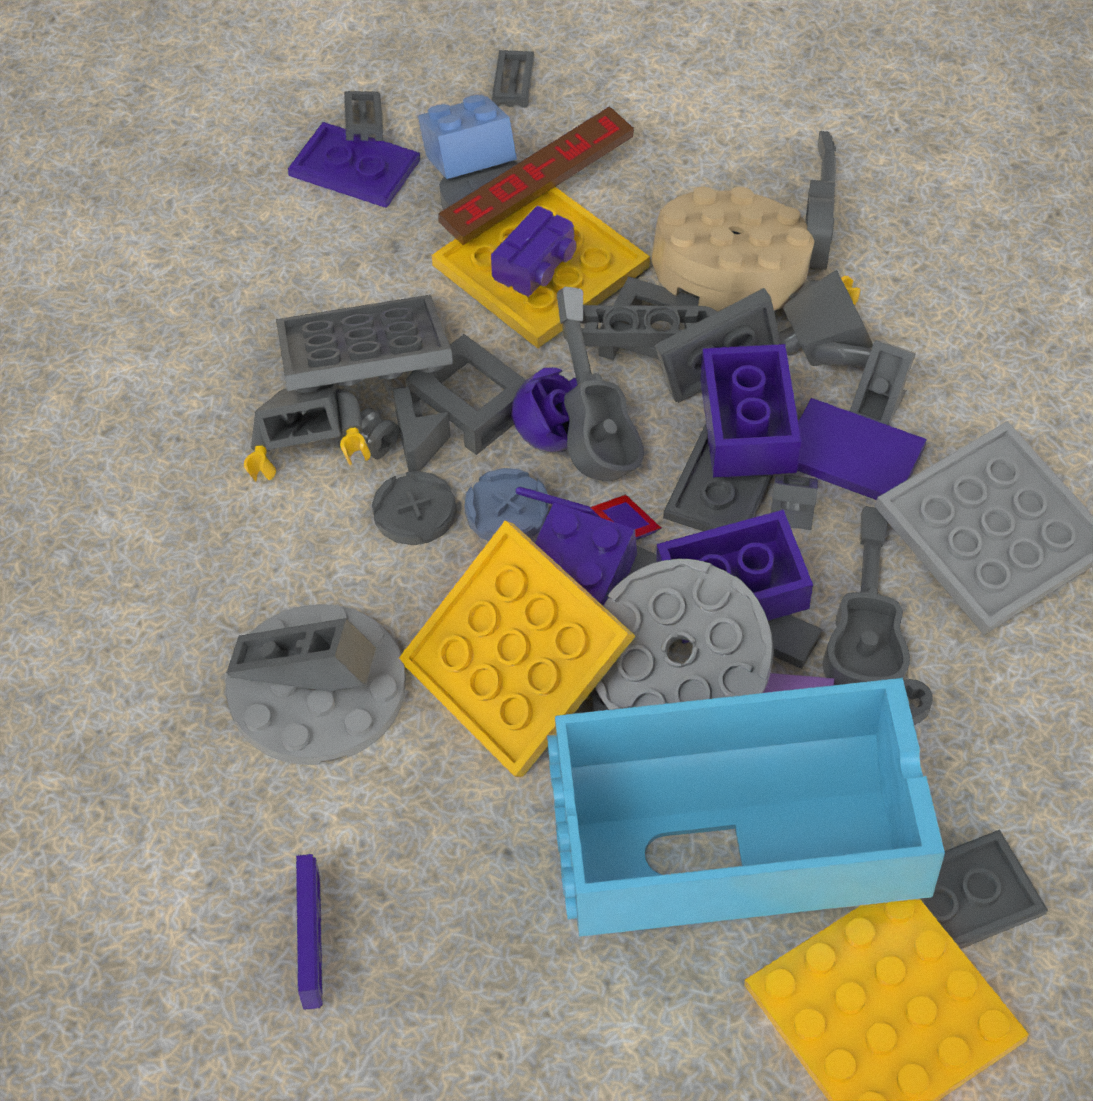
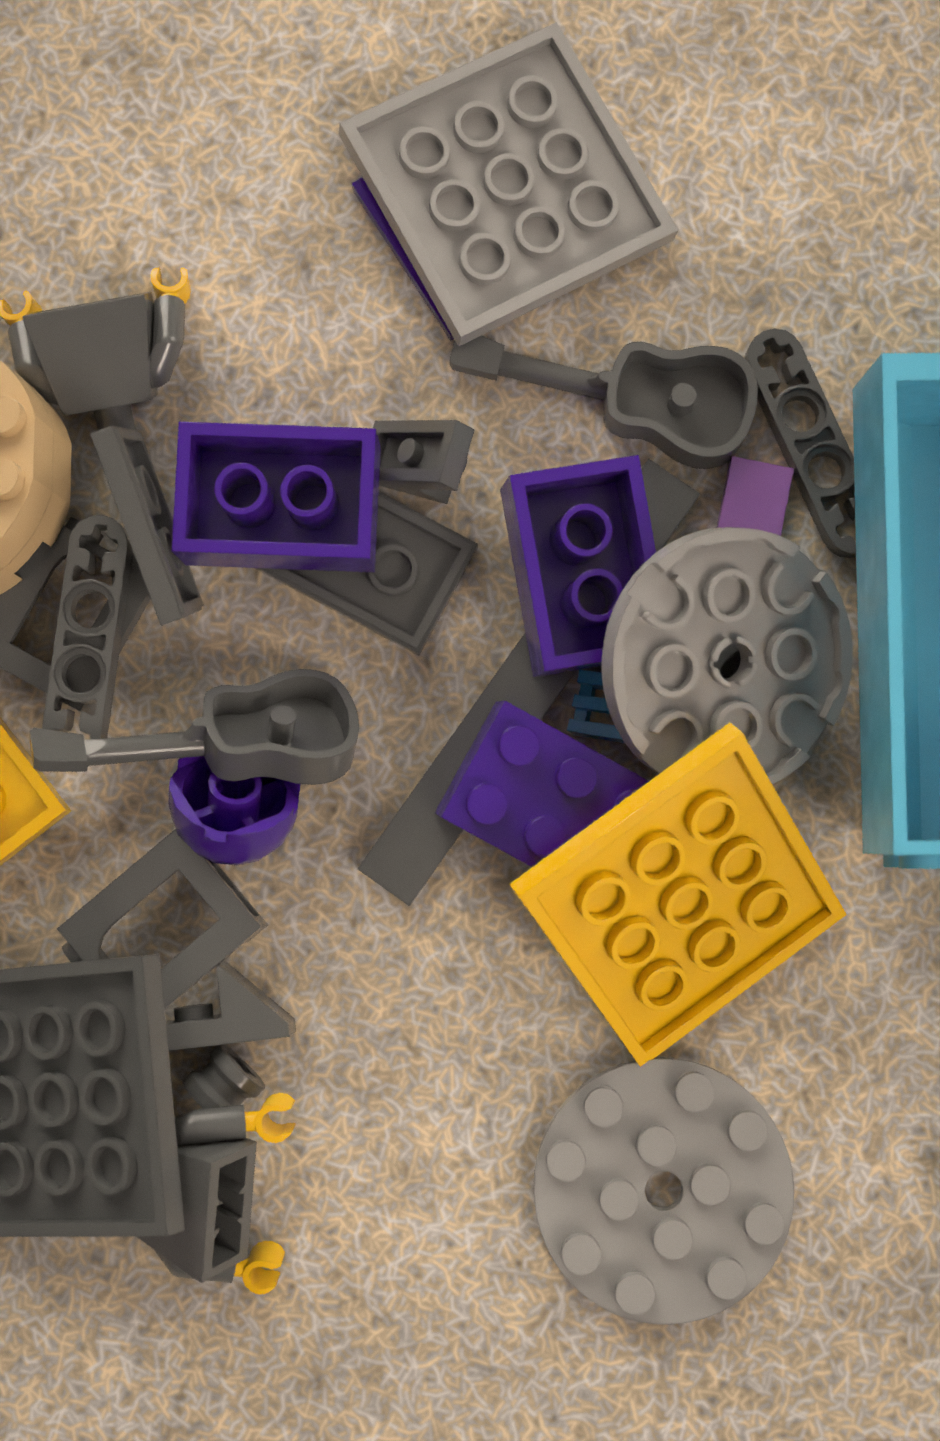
camera: 80 degrees left, 30 degrees up
(306, 656) = (660, 1213): dark grey slope -> none
(414, 508) = (363, 1027): dark grey tile -> none
(495, 500) = (390, 886): sand blue tile -> none
(618, 510) = (421, 719): dark purple piece -> none
(855, 450) = (336, 351): dark purple tile -> none
(883, 382) = (231, 293): dark grey slope -> none

